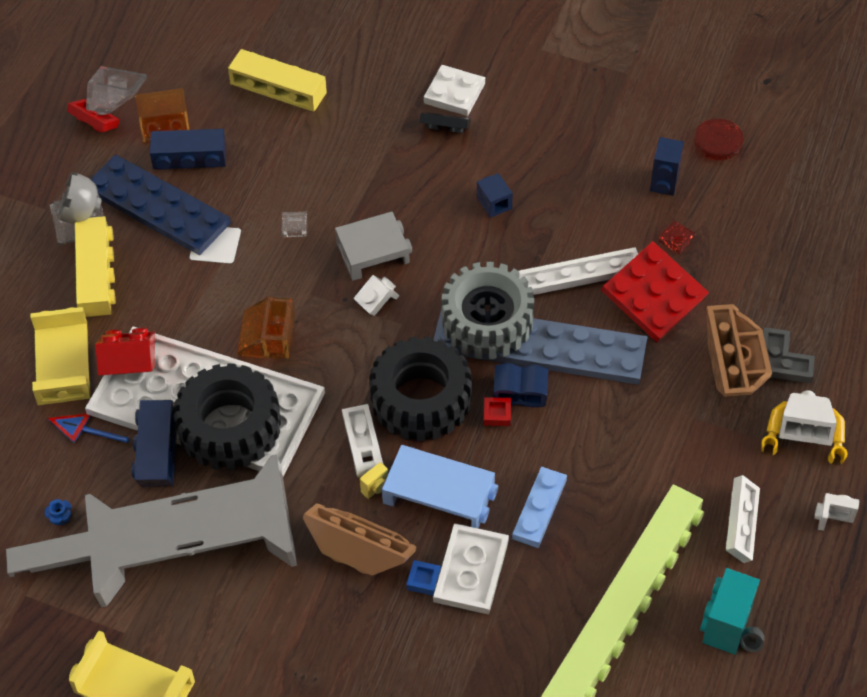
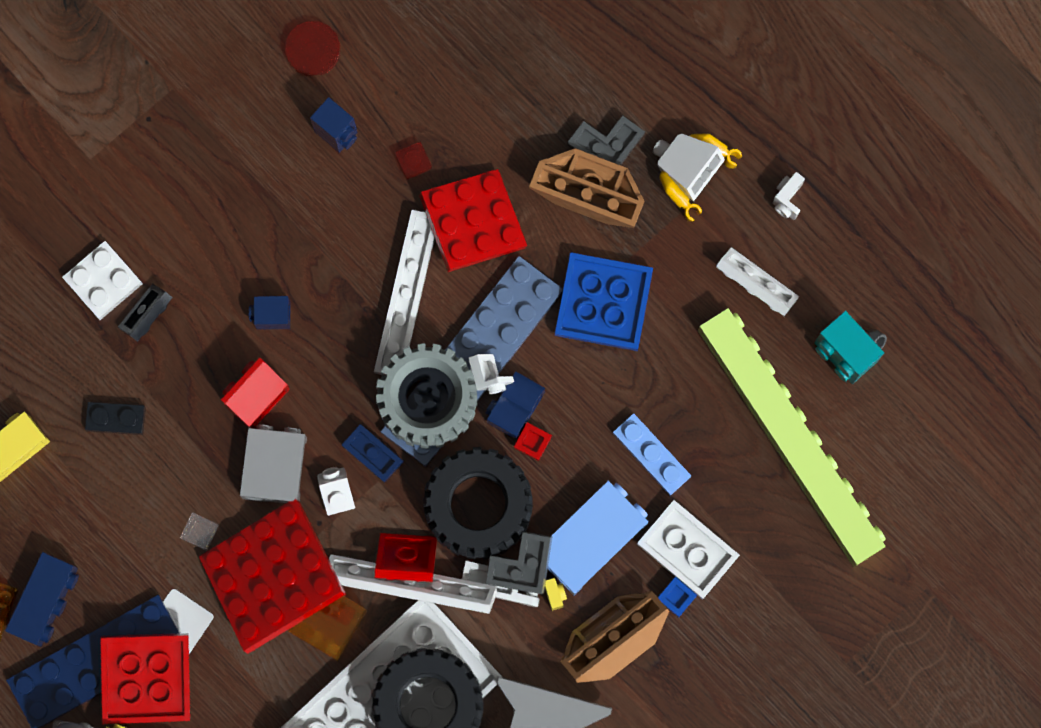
camera: 65 degrees left, 25 degrees up
(157, 230) = (145, 678): none -> red plate
(281, 272) = (271, 575): none -> red plate
(326, 371) = (442, 590): none -> white plate
(345, 357) = (406, 557): none -> red plate
(353, 139) = (115, 418): none -> black plate
(385, 443) = (528, 571): none -> dark grey plate
(421, 306) = (372, 453): none -> dark blue plate
(422, 204) = (254, 393): none -> slope
(533, 345) = (486, 374): none -> white bracket
(649, 412) = (604, 301): none -> blue plate

